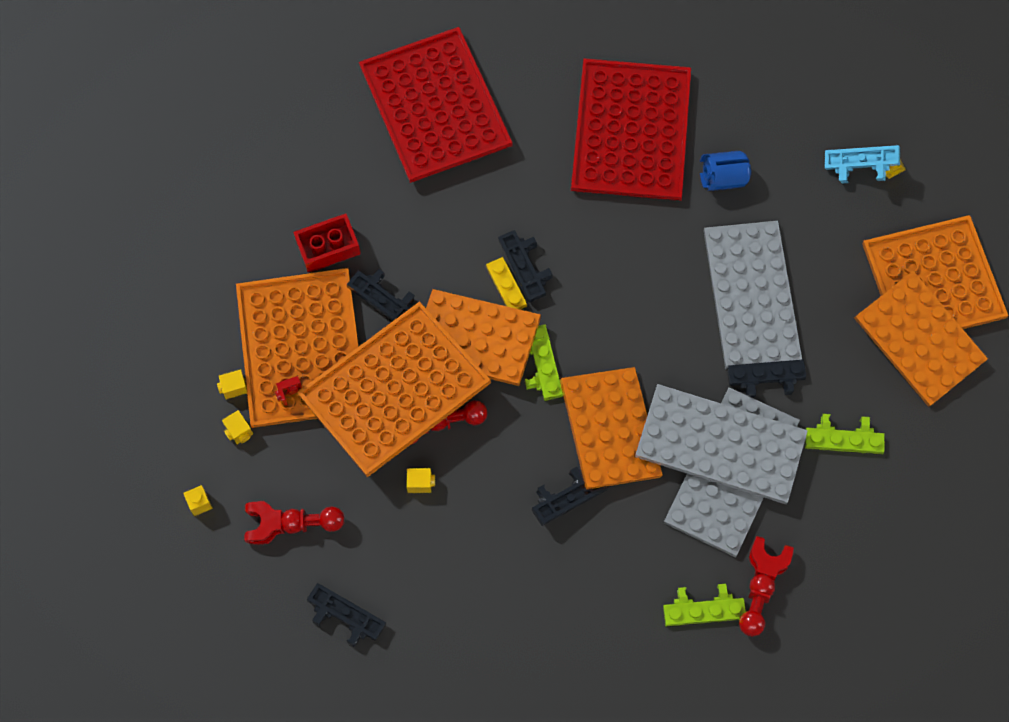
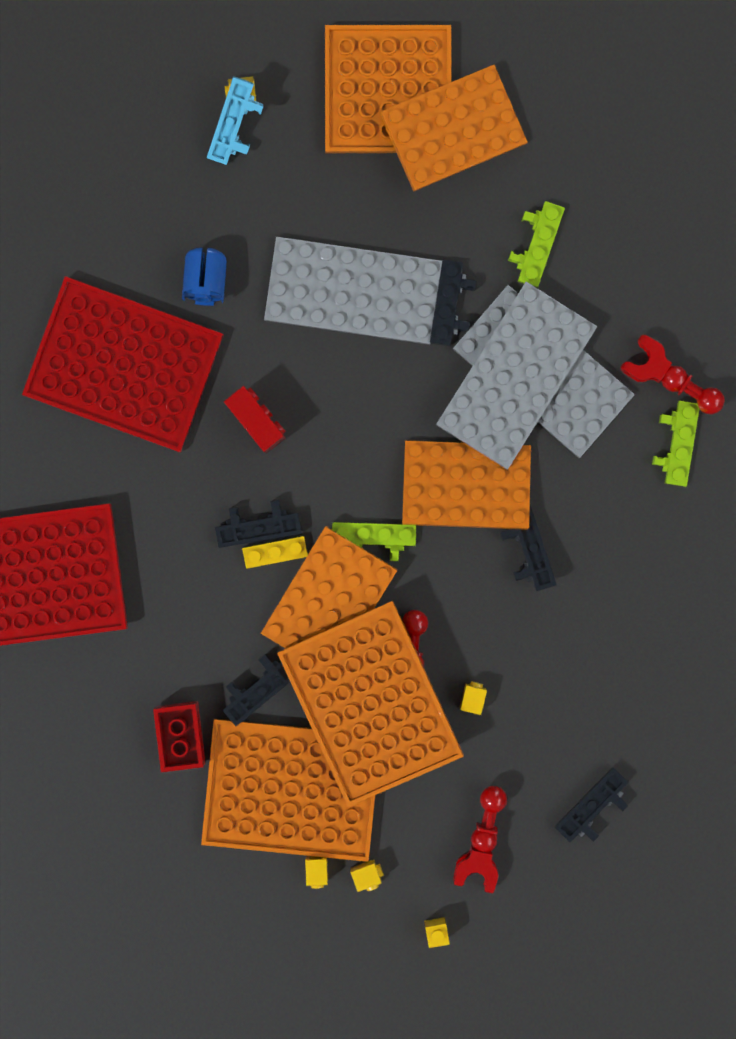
camera: 80 degrees left, 20 degrees up
(288, 387) = (340, 812): red bracket -> none
(616, 237) = (255, 419): none -> red brick

